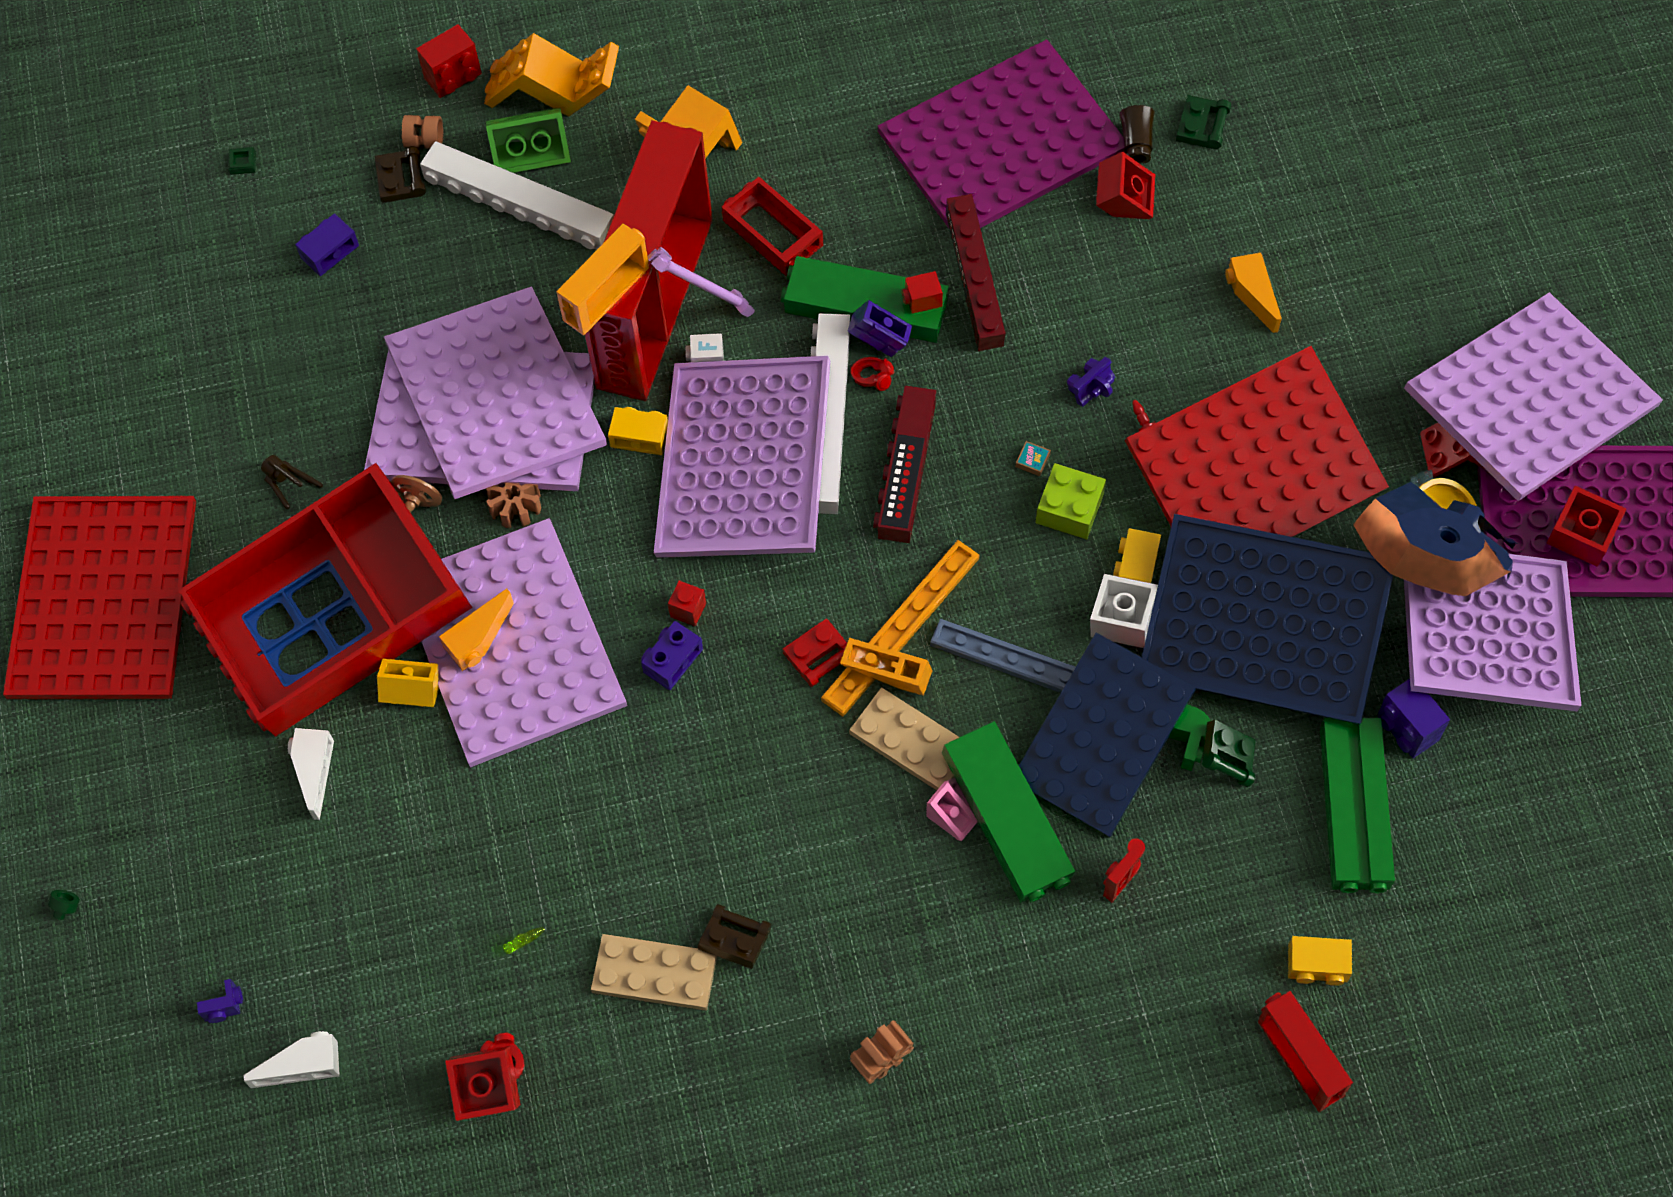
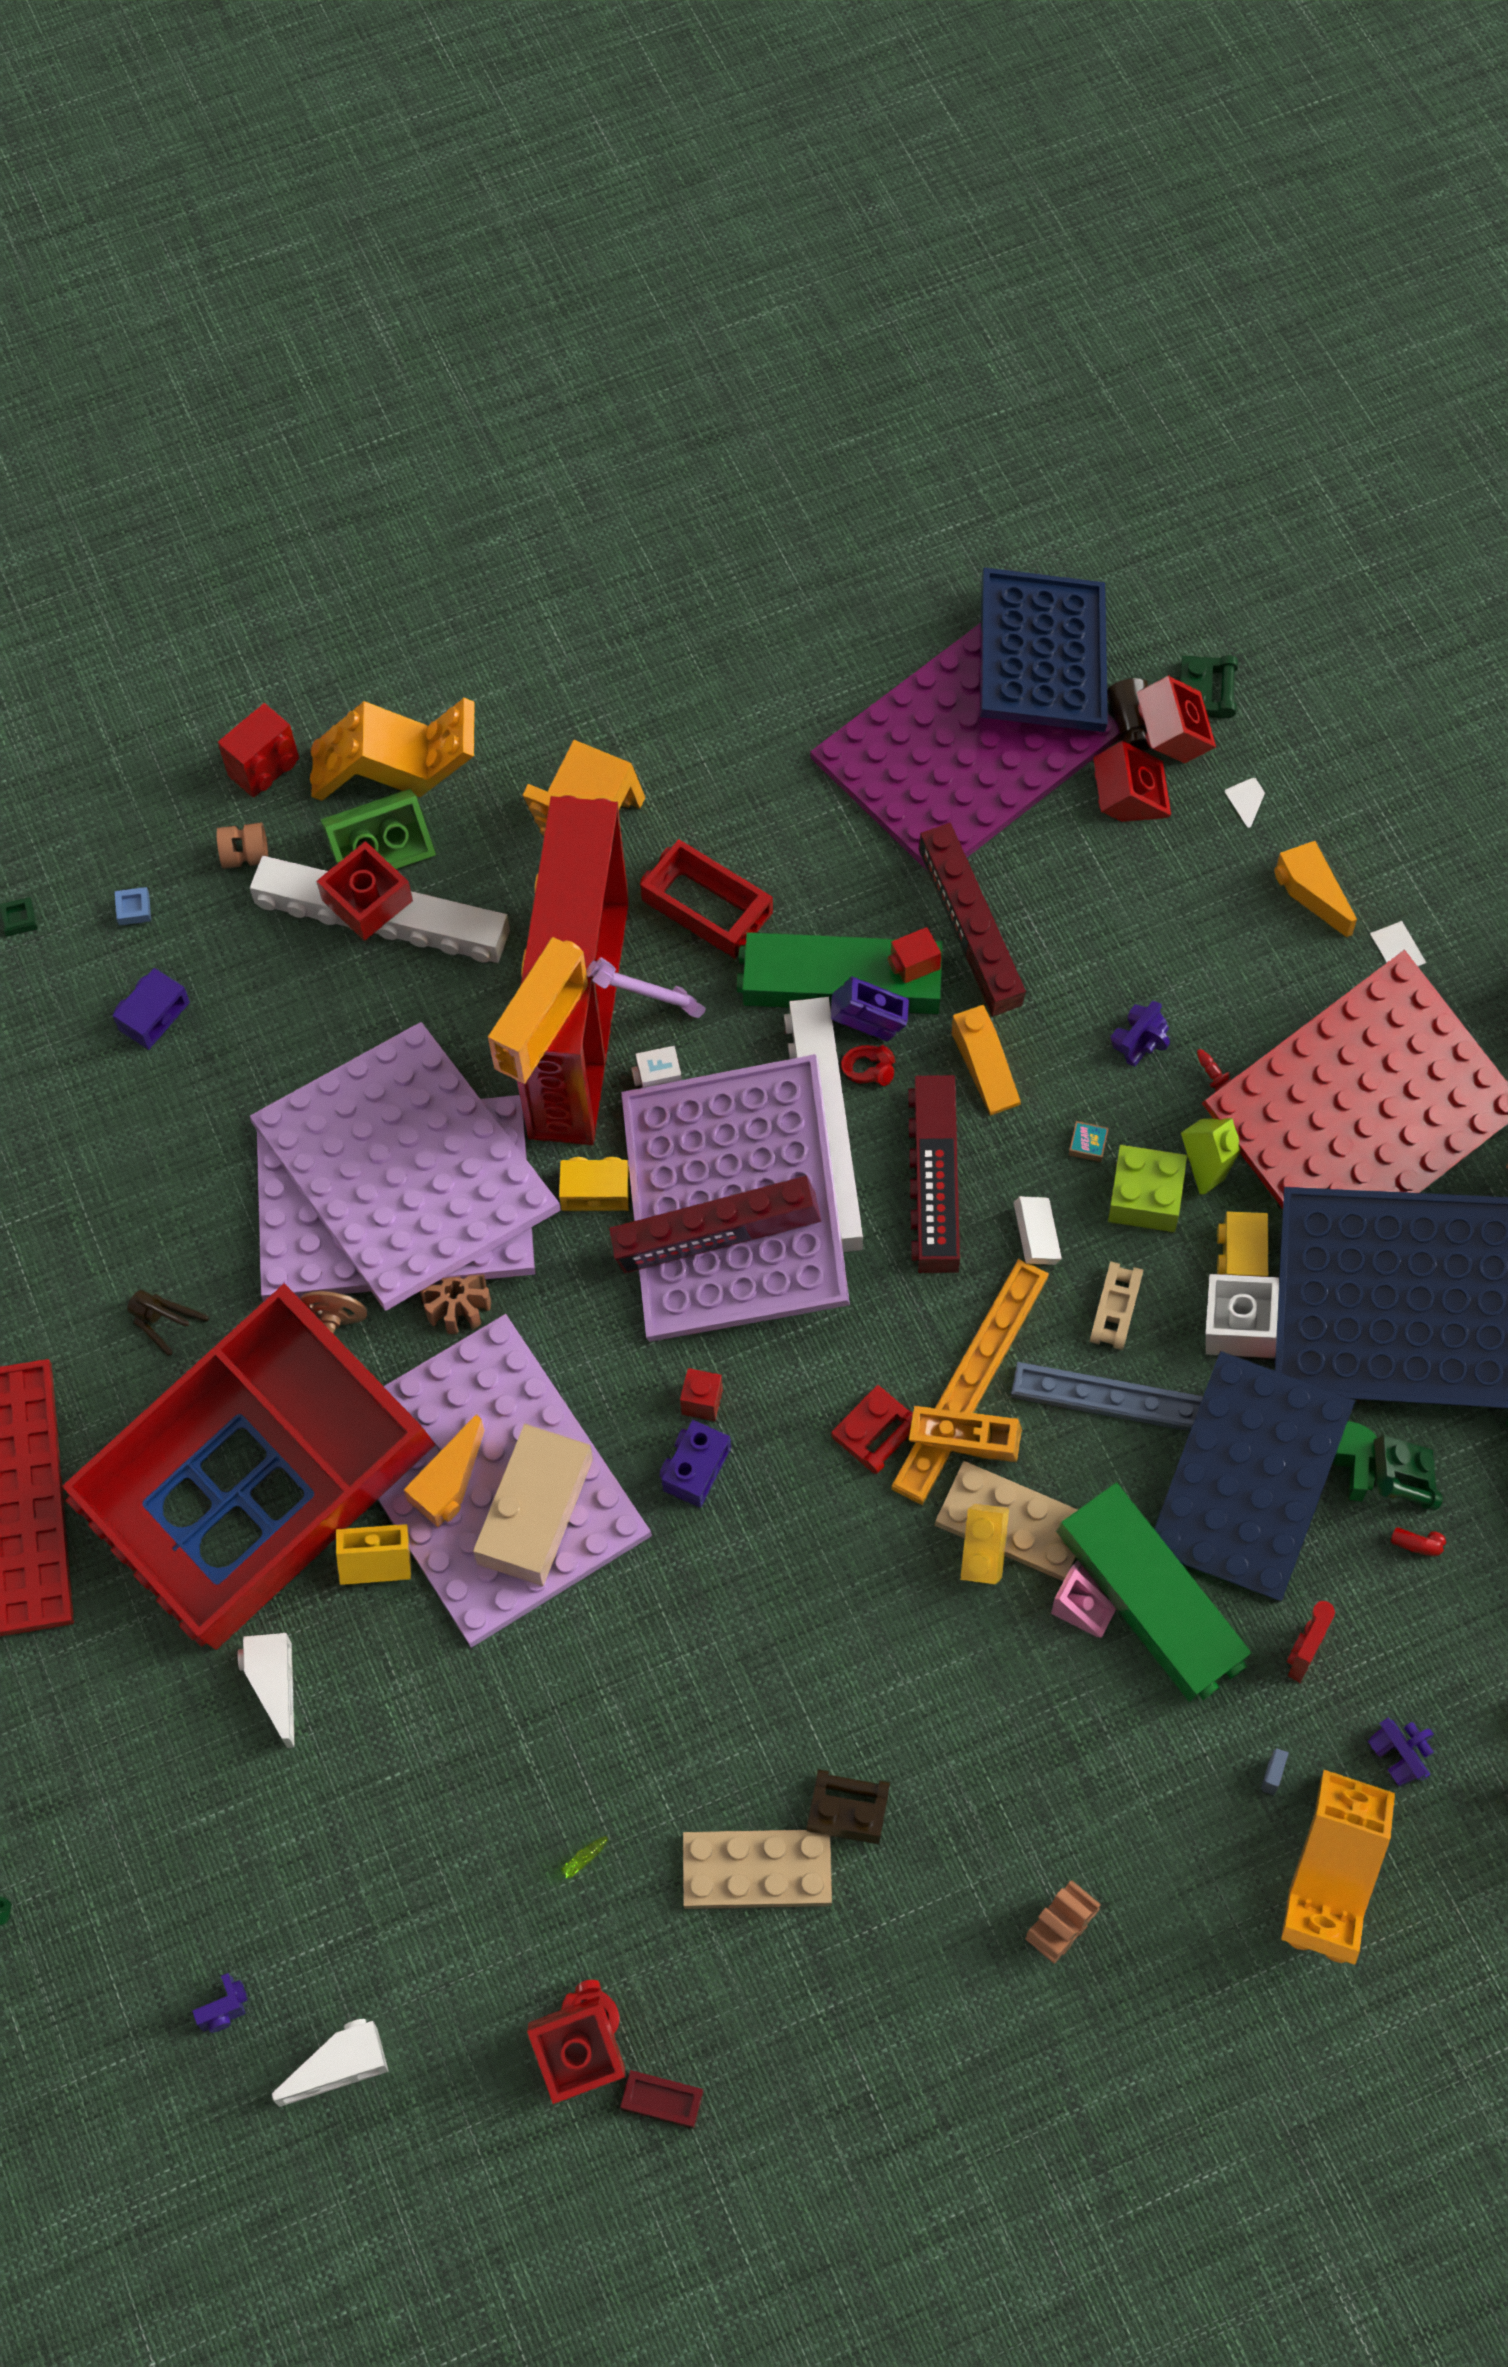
camera: 10 degrees left, 0 degrees up
(329, 165) = (132, 906): none -> medium blue plate
(391, 175) = (213, 907): dark brown plate -> none
(505, 178) = (364, 890): none -> red brick
(537, 664) = (533, 1504): none -> tan brick
(543, 1134) = (662, 2099): none -> dark red tile
(722, 473) = (715, 1224): none -> dark red brick
(882, 752) = (984, 1543): none -> yellow brick
(964, 382) = (985, 1059): none -> light orange slope
(977, 520) = (1037, 1230): none -> white tile
(1027, 587) = (1116, 1305): none -> tan plate
(1075, 966) = (1274, 1771): none -> sand blue tile
(1076, 73) = (1043, 650): none -> dark blue plate
(1107, 1047) = (1338, 1867): none -> light orange bracket
(1125, 479) = (1211, 1151): none -> lime slope
(1169, 142) = (1175, 719): none -> red brick
(1174, 956) = (1391, 1737): none -> dark purple hips
(1215, 214) = (1246, 799): none -> white sticker
(1222, 807) = (1413, 1542): none -> red arm
(1314, 338) = (1394, 940): none -> white sticker

